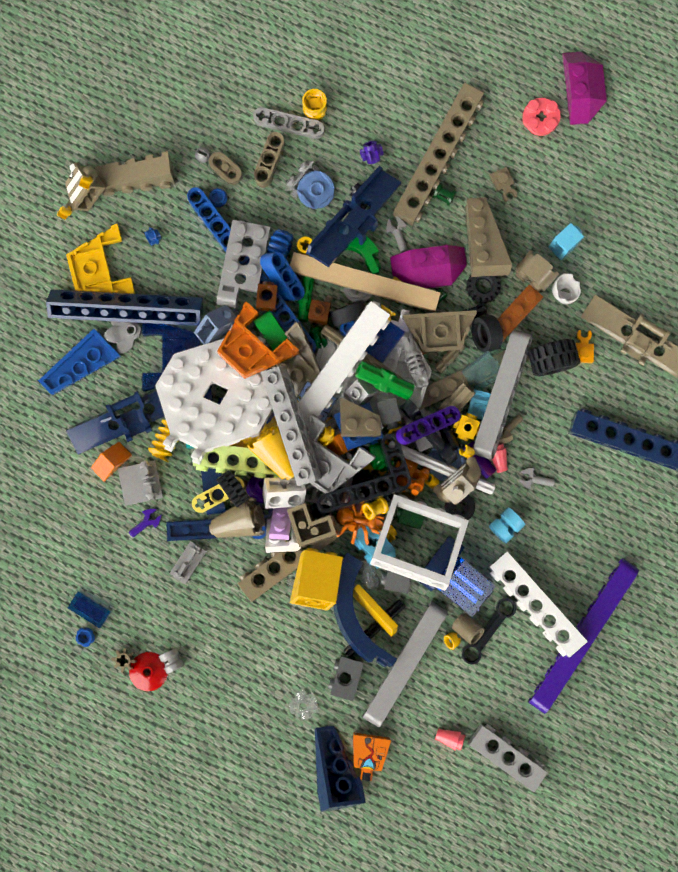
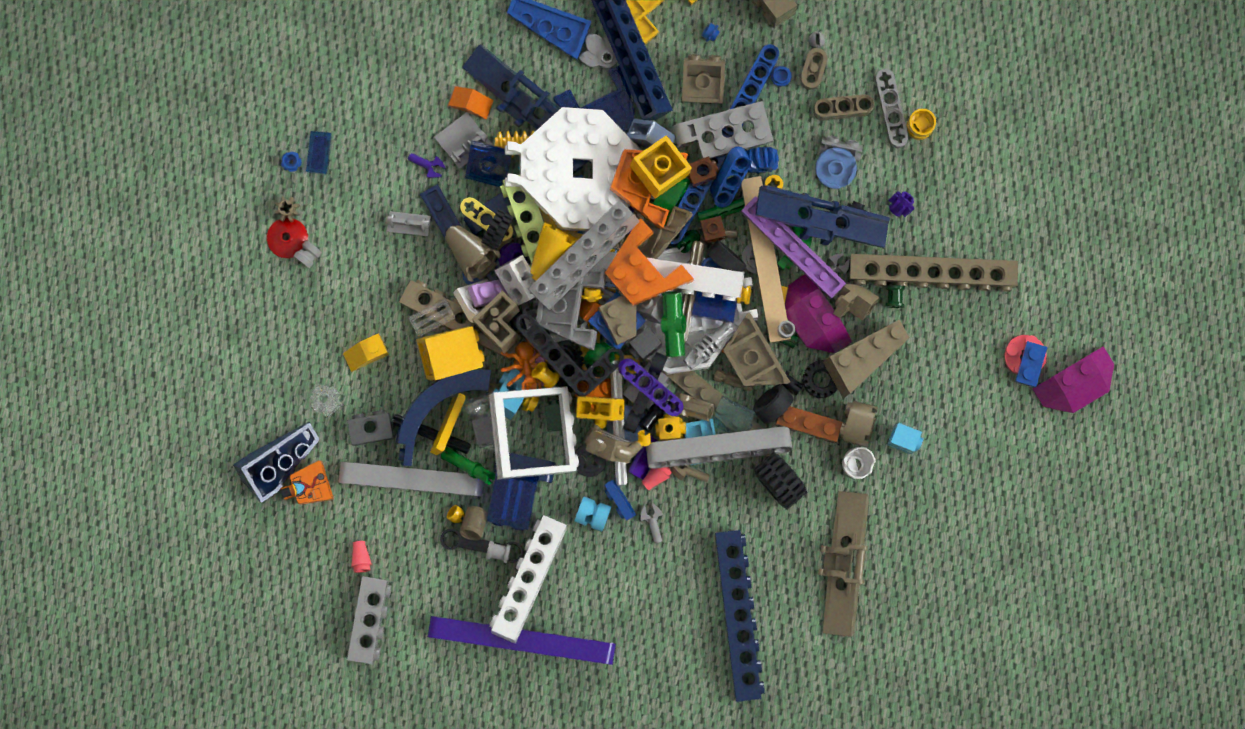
camera: 70 degrees right, 0 degrees up
(171, 471) = (487, 164): none -> clear blue plate
(189, 260) = (703, 79): none -> dark tan plate
(248, 326) = (660, 166): none -> yellow brick
(279, 651) = (365, 352): none -> yellow slope
(286, 580) = (416, 325): none -> clear tile
(330, 390) = (636, 275): none -> orange wing
(369, 253) = (796, 251): none -> medium lavender plate
(425, 606) = (474, 469): none -> green pin
(429, 471) = (606, 408): none -> yellow torso
(432, 289) = (788, 327): none -> light grey hinge
(433, 226) = (855, 300): none -> dark tan brick
(502, 181) = (938, 348): dark tan plate -> none
(503, 619) = (498, 552): none -> light grey bush
(513, 497) = (615, 493): none -> blue plate
(552, 113) = (1031, 364): none -> blue plate
(585, 350) = (805, 510): light orange plate -> none

